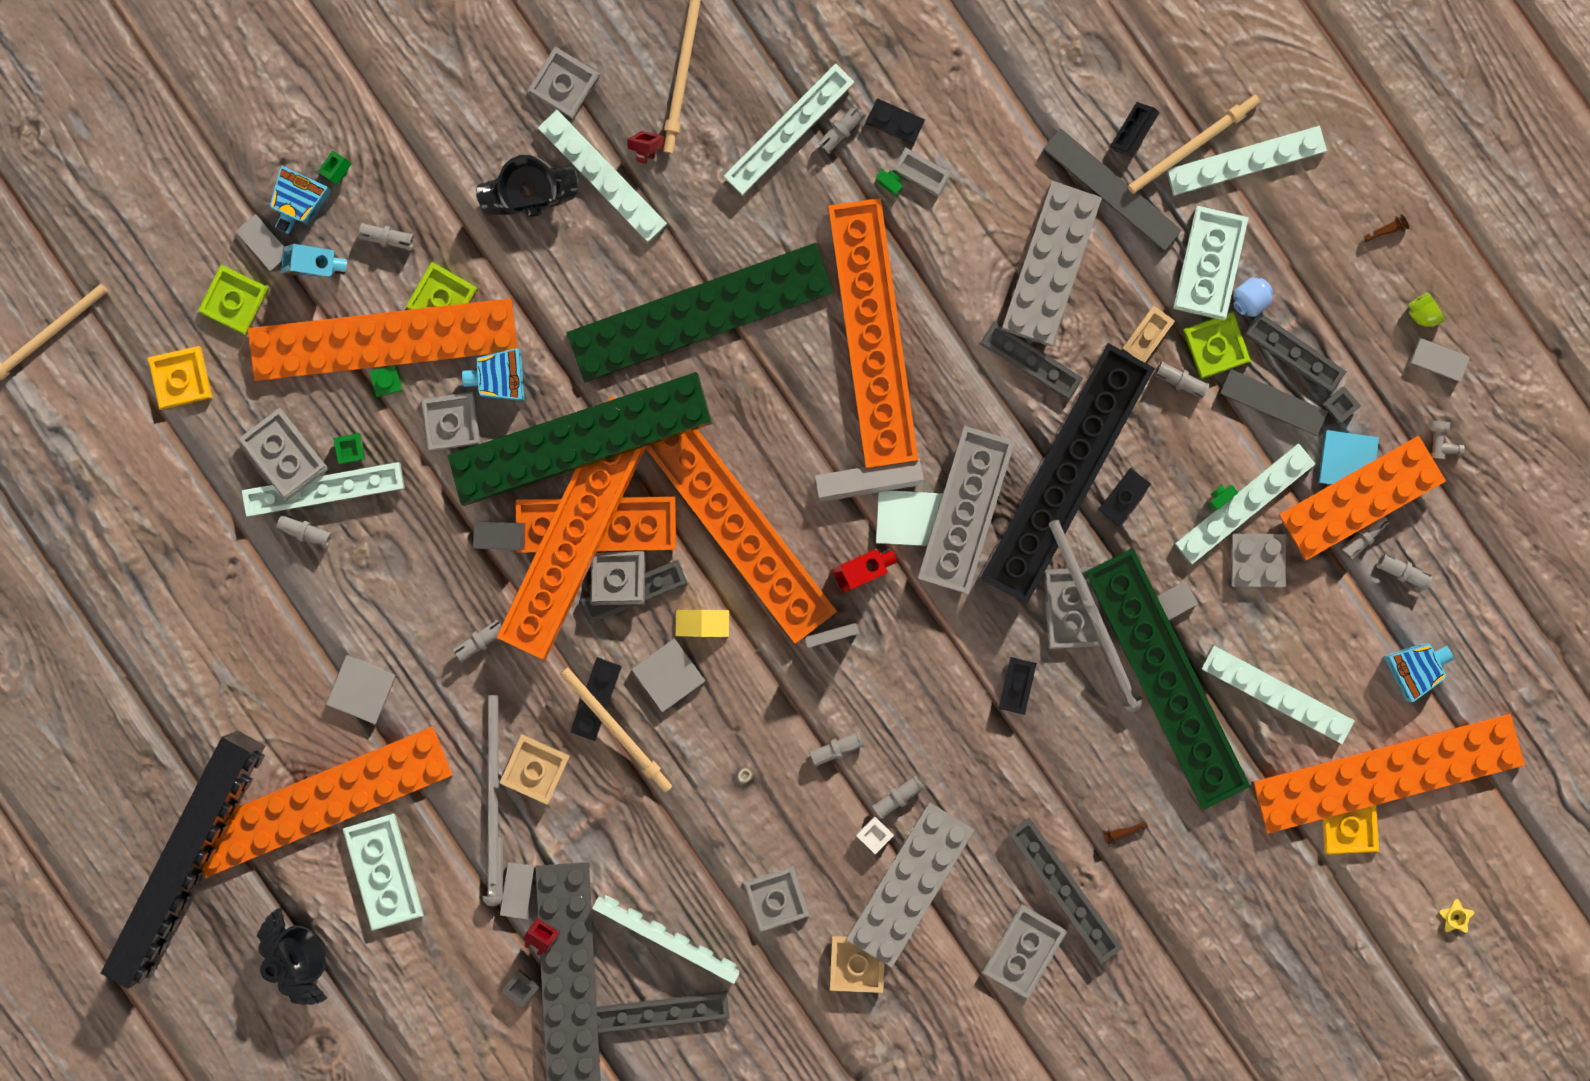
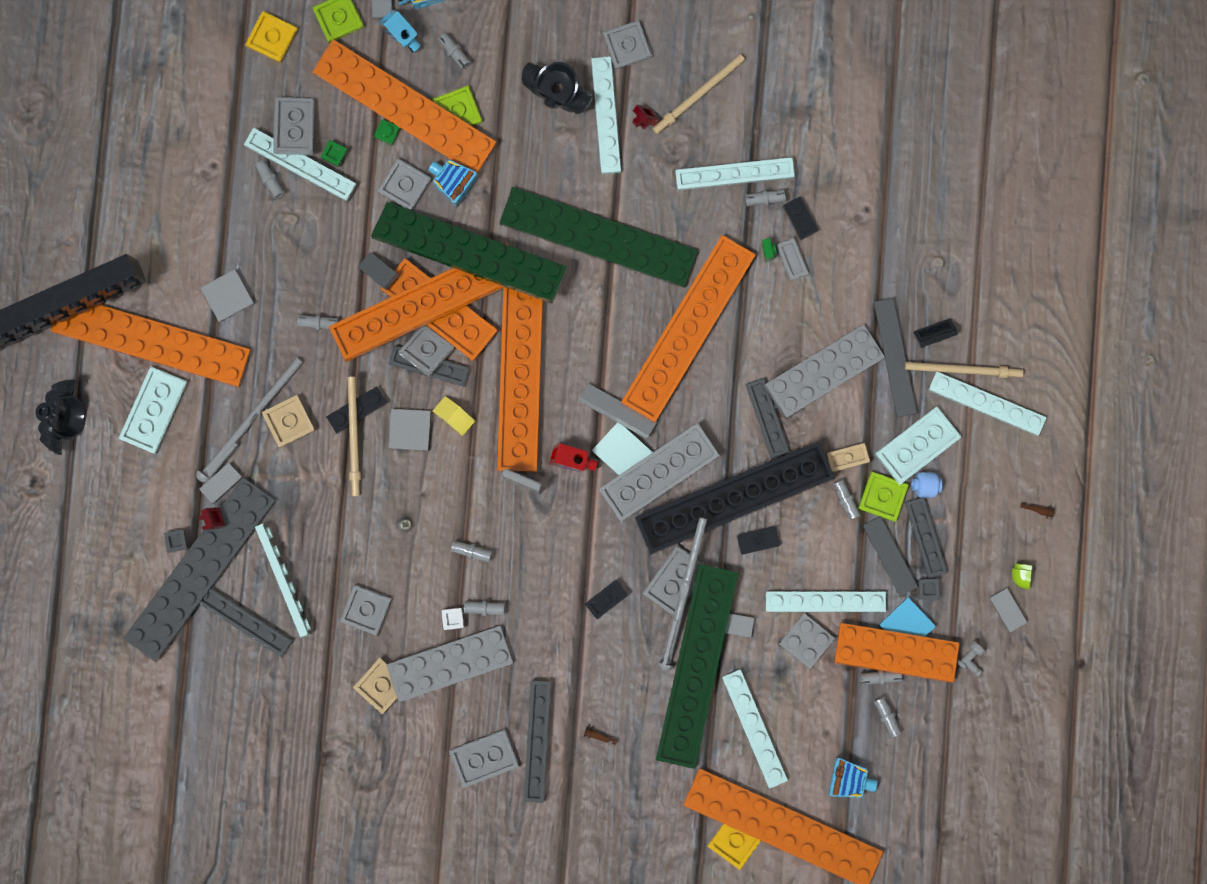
camera: 40 degrees right, 5 degrees down
(1221, 496) = (815, 585): green plate -> none

